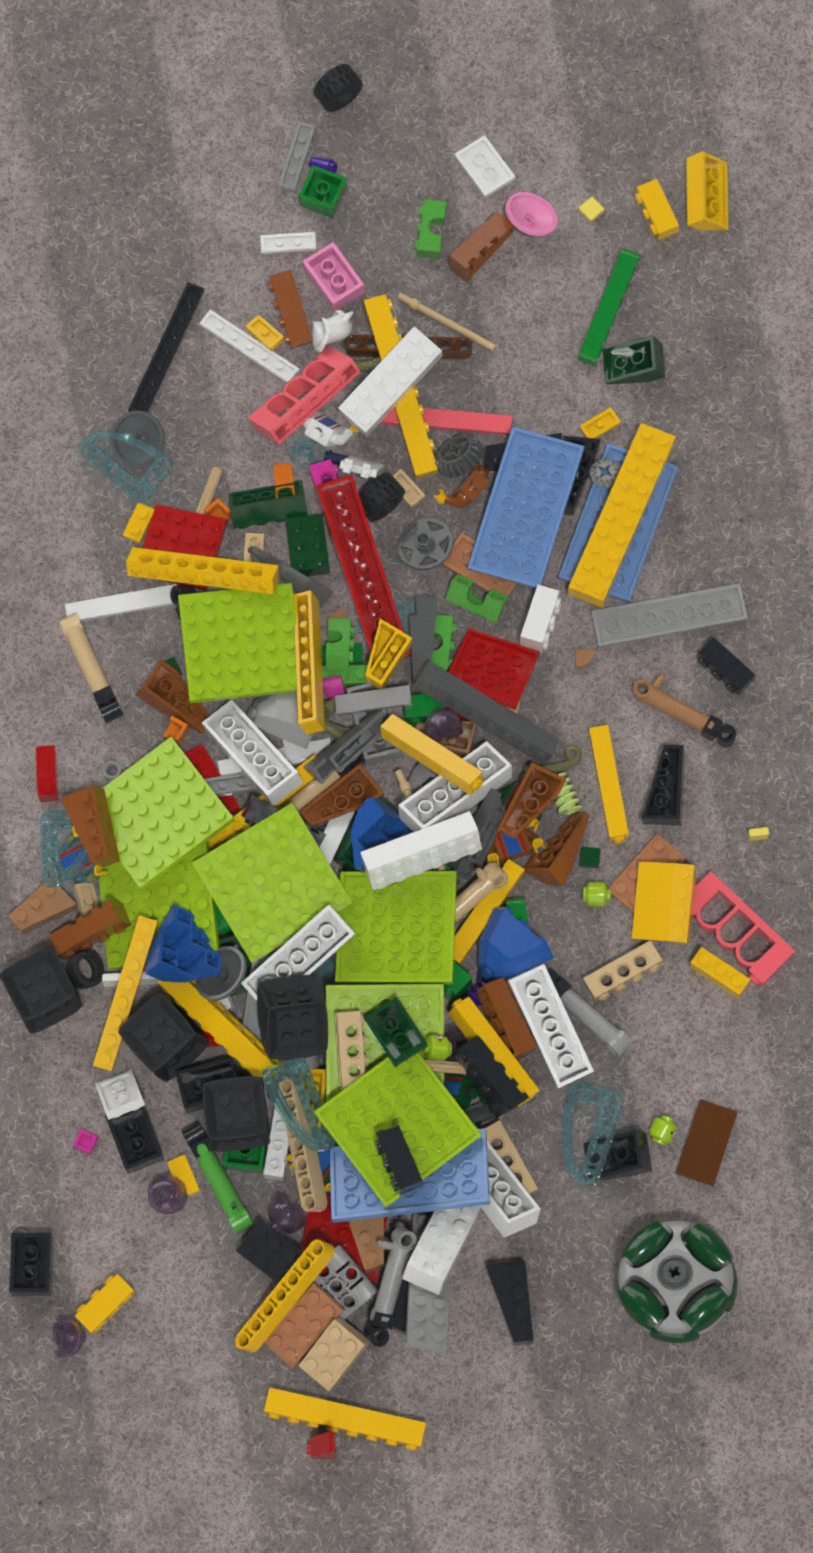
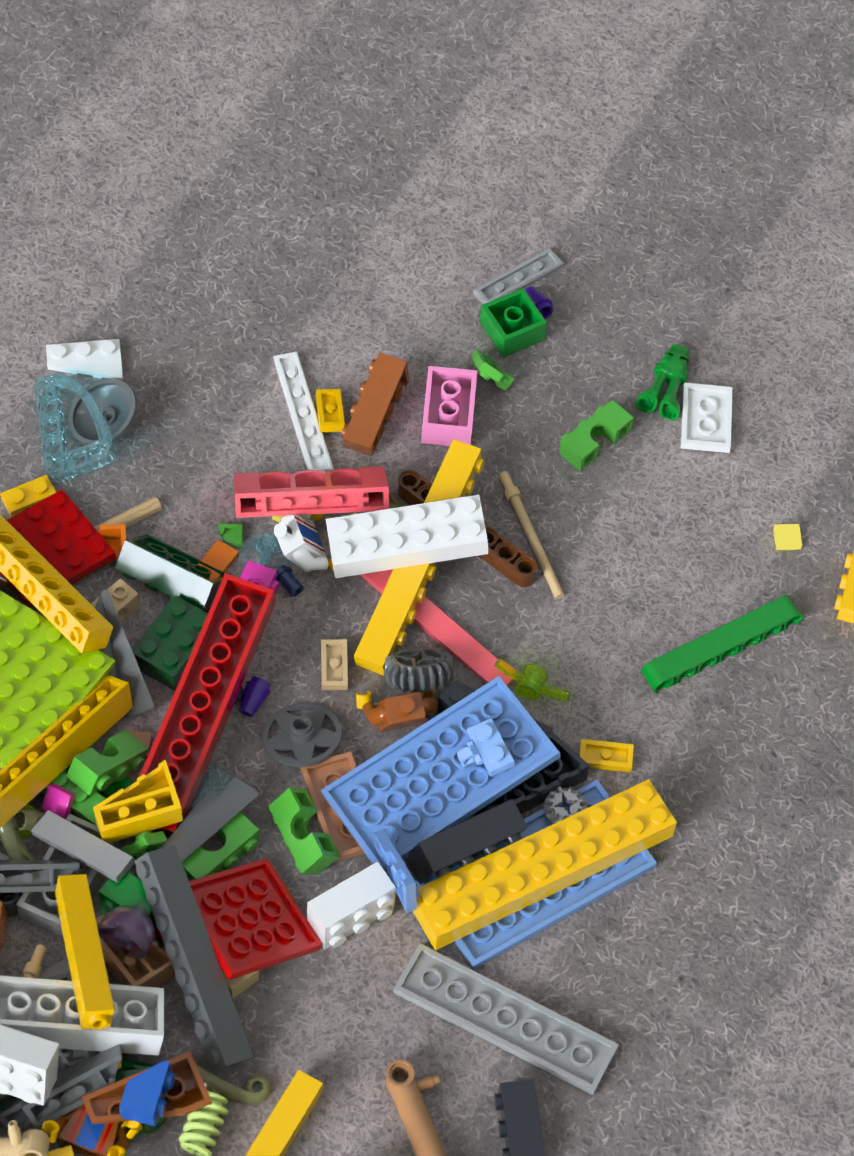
camera: 30 degrees right, 15 degrees down
(91, 409) = (92, 358): none -> white wing
(167, 348) = (218, 357): black tile -> none
(277, 454) = (232, 534): none -> bright green tile
(288, 242) = (434, 347): white tile -> none
(331, 329) = (402, 452): white hair -> none
(335, 234) = (489, 369): none -> bright green hinge
(338, 87) = (615, 239): black tyre -> none
(362, 466) = (301, 600): white tile -> none
(380, 541) = (254, 695): none -> dark purple cone
(381, 496) = (293, 647): black tyre -> none
(401, 672) = (144, 843): none -> bright green hinge
(437, 151) = (672, 369): none -> green piece
(480, 246) = (631, 485): dark orange wedge -> none
(523, 412) = (531, 681): none -> clear neon green piece
(531, 214) = (714, 492): bright pink dish -> none
(532, 803) = (145, 1094): none -> blue slope
(542, 474) = (486, 748): none -> light blue hinge
(551, 580) = (396, 870): none -> medium blue wing
(574, 536) = (466, 841): none -> black wedge
(583, 657) = (367, 989): medium nougat tile -> none
(634, 362) = (702, 719): dark green slope -> none

